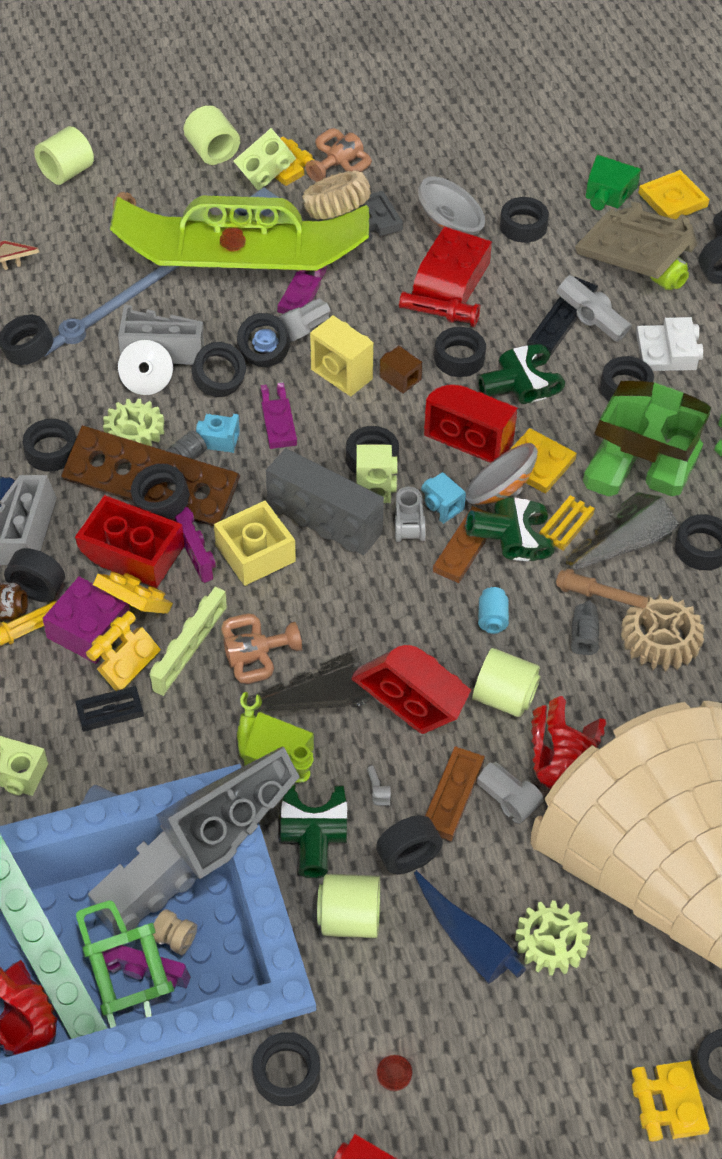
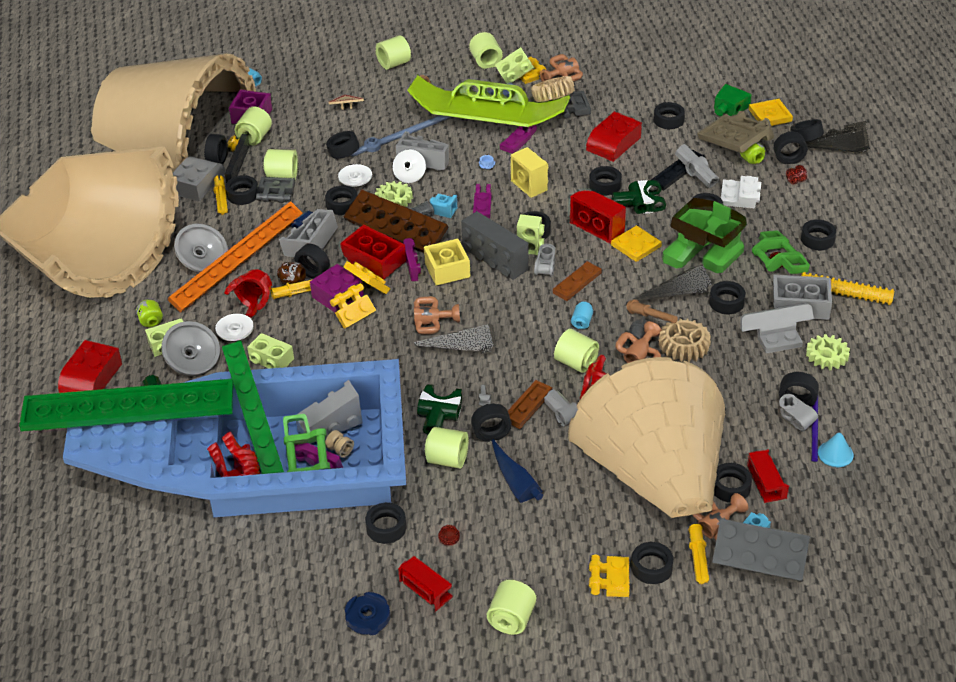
camera: 15 degrees right, 10 degrees down
(60, 395) = (355, 175): none -> white dish
(110, 713) = (334, 335): black tile -> none
(154, 475) = (394, 219): black tyre -> none
(192, 635) = (393, 307): yellowish green plate -> none
(221, 815) = (377, 378): dark grey wedge -> none
(225, 351) = (455, 161): black tyre -> none
(232, 239) = (480, 104): clear red plate -> none
(258, 320) = (482, 149): black tyre -> none
(265, 734) = (425, 364): lime torso -> none
(301, 320) = (506, 151): light grey piece -> none
(400, 369) = (564, 185): reddish brown brick -> none
(414, 687) = (515, 340): red brick -> none
(444, 496) = (570, 254): medium azure brick -> none
(450, 205) = (622, 101): light grey dish -> none
(451, 310) = (609, 157): red pin -> none
(503, 476) = (610, 247): light grey dish -> none
(512, 527) = (607, 274): dark green connector -> none
(549, 942) = (564, 483): yellowish green gear -> none
(577, 507) = (641, 276): yellow tile -> none
(600, 660) = (640, 347): none -> nougat piece

